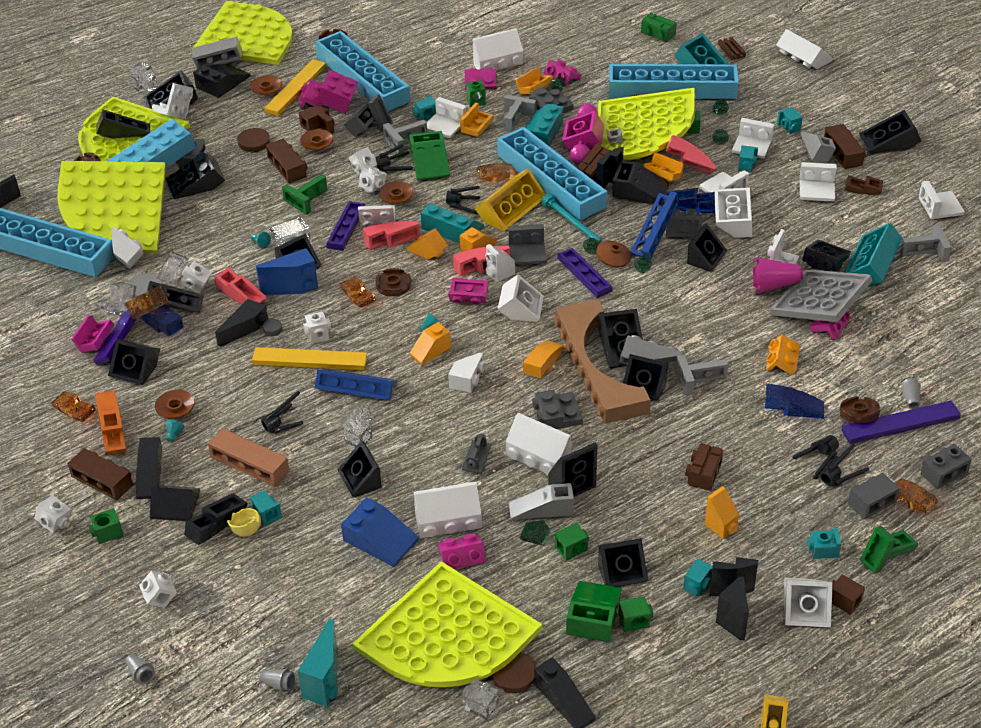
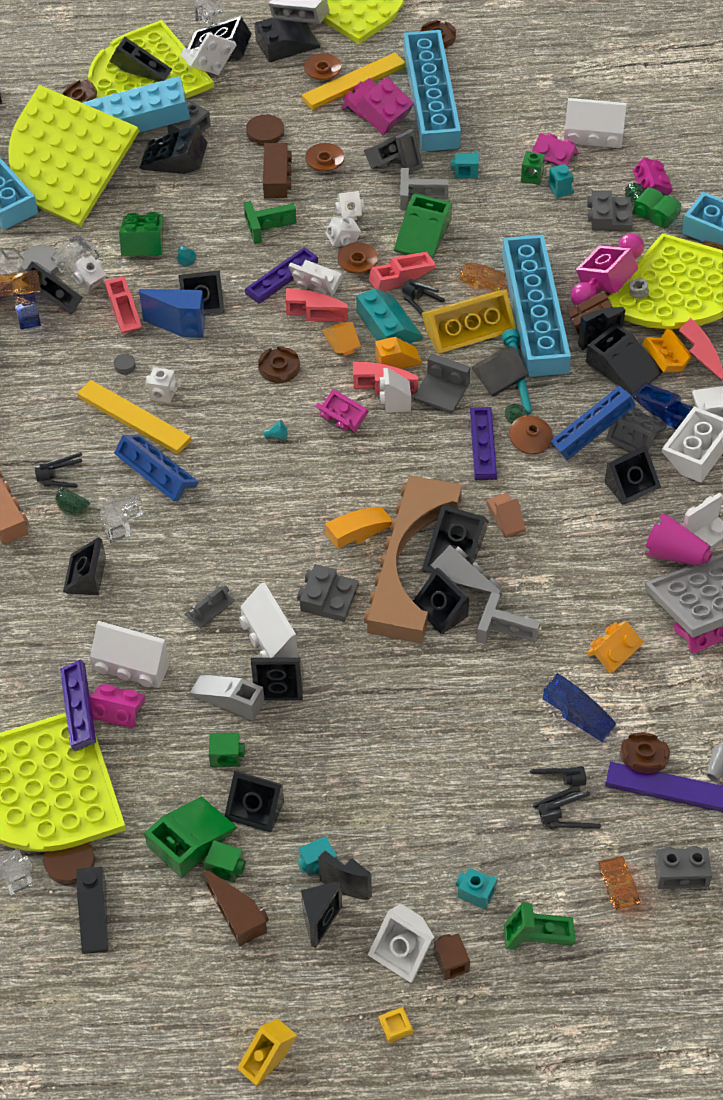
camera: 30 degrees right, 10 degrees up
(124, 248) = (43, 210): white slope -> none
(215, 238) = (141, 234): none -> green slope
(243, 321) = (96, 346): black slope -> none
(287, 231) = (216, 259): clear brick -> none
(311, 432) = (70, 502): none -> clear green hair
(316, 118) = (343, 129): reddish brown brick -> none
(356, 291) = (234, 360): clear orange slope -> none
(378, 532) = (52, 642): blue slope -> none
(383, 160) = (374, 212): black plant -> none
(431, 343) = (258, 456): light orange slope -> none
(434, 189) = (400, 270): none -> coral slope
(437, 561) = (77, 705): none -> dark purple tile
(446, 117) = (478, 189): white bracket -> none
(466, 373) = (268, 506): white slope -> none
(475, 121) = (506, 202): light orange bracket -> none
(499, 91) = (561, 181): none -> teal brick
(517, 107) = (564, 204): light grey bracket -> none
(520, 300) = (386, 448): white slope -> none
(532, 81) = (608, 177): light orange bracket -> none
(535, 532) = (203, 721): clear green slope -> none
(546, 122) = (576, 241): teal slope -> none
(561, 221) = (501, 370): none -> black slope
(579, 87) = (656, 207): none -> green brick
(642, 264) = (551, 462): clear green plate -> none
(645, 307) = (506, 514): none -> nougat slope
(668, 639) = (238, 910): none -> reddish brown slope
(704, 466) = (423, 735): reddish brown brick -> none
(721, 513) = (392, 798): light orange slope -> none
(844, 659) = (395, 1025): none -> yellow tile
(873, 495) = (571, 861): dark grey brick -> none

